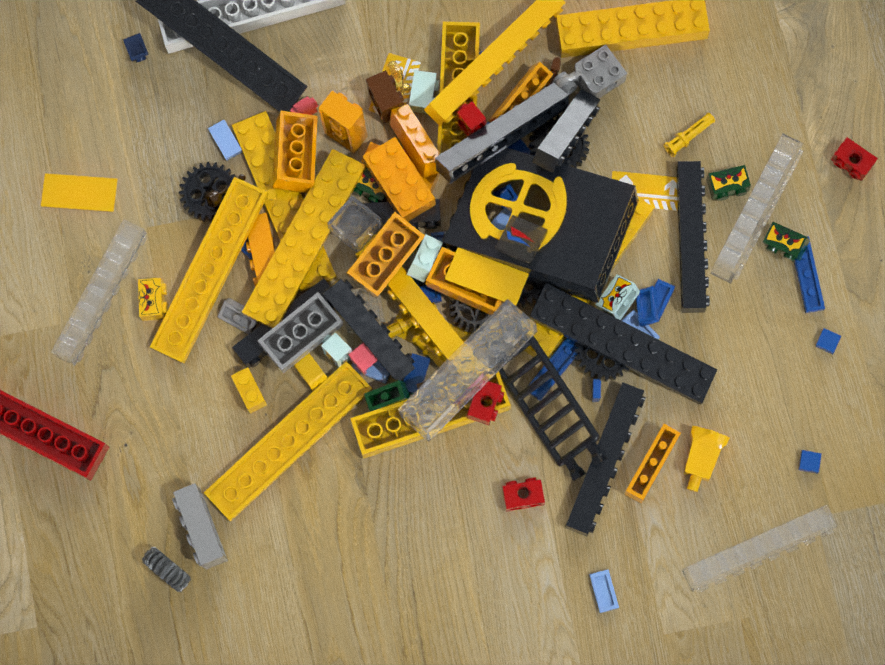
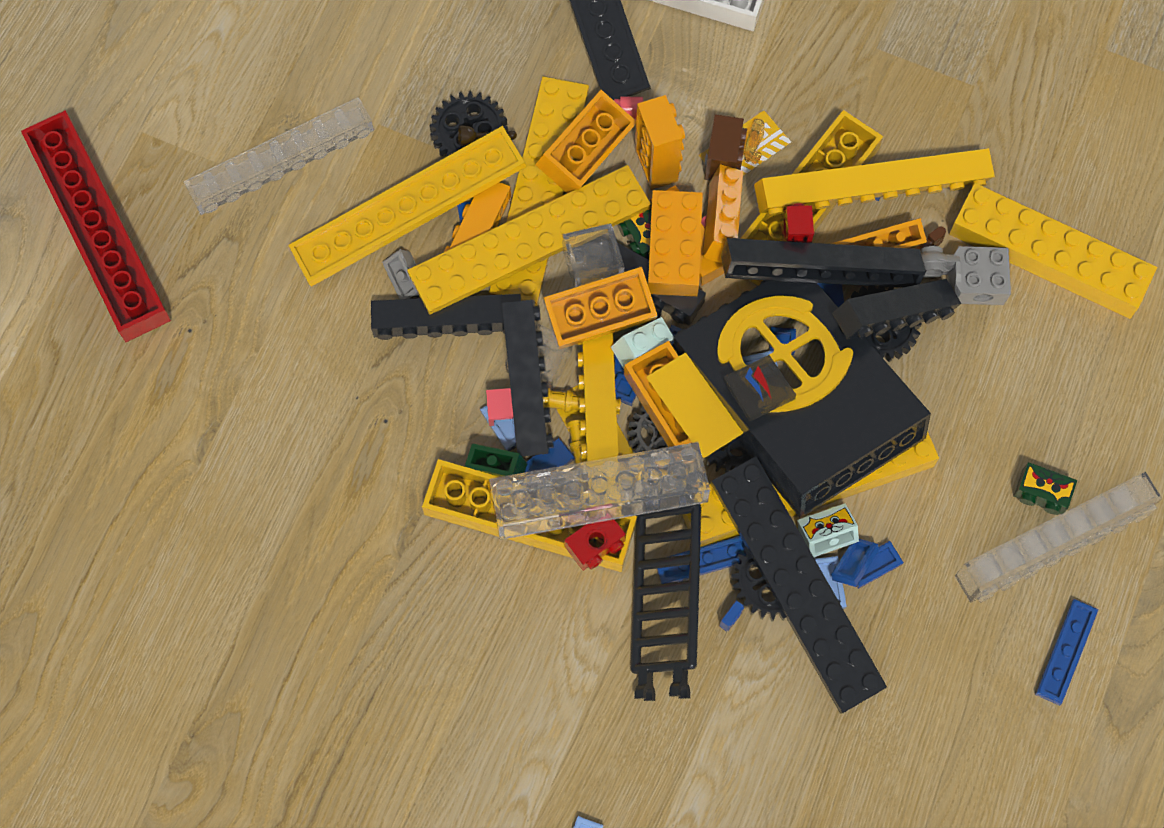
camera: 30 degrees right, 5 degrees down
(79, 192) = (337, 45): yellow sticker -> none
(151, 299) = (327, 197): yellow brick -> none
(166, 569) = (128, 485): dark grey gear -> none
(200, 526) = (196, 465): light grey brick -> none
(225, 140) = (524, 88): light blue tile -> none
(249, 390) = (356, 359): yellow brick -> none
(288, 441) = (357, 441): yellow plate -> none
(300, 332) = (450, 332): light grey brick -> none
(310, 371) = (435, 370): yellow beam -> none
(336, 349) = (477, 377): light aqua brick -> none
(422, 90) = (773, 163): light aqua brick -> none
(514, 502) = (577, 687): red brick -> none
(611, 443) = (706, 686): black brick -> none
(652, 463) = (737, 740): light orange brick -> none
(654, 189) = (956, 444): yellow sticker -> none
(683, 139) = (1025, 407): yellow pin -> none
(691, 237) = (959, 521): black brick -> none
(703, 455) = (802, 772): yellow piece -> none
(786, 241) = (1067, 597): dark green brick -> none
(828, 341) = (1040, 743): blue tile -> none

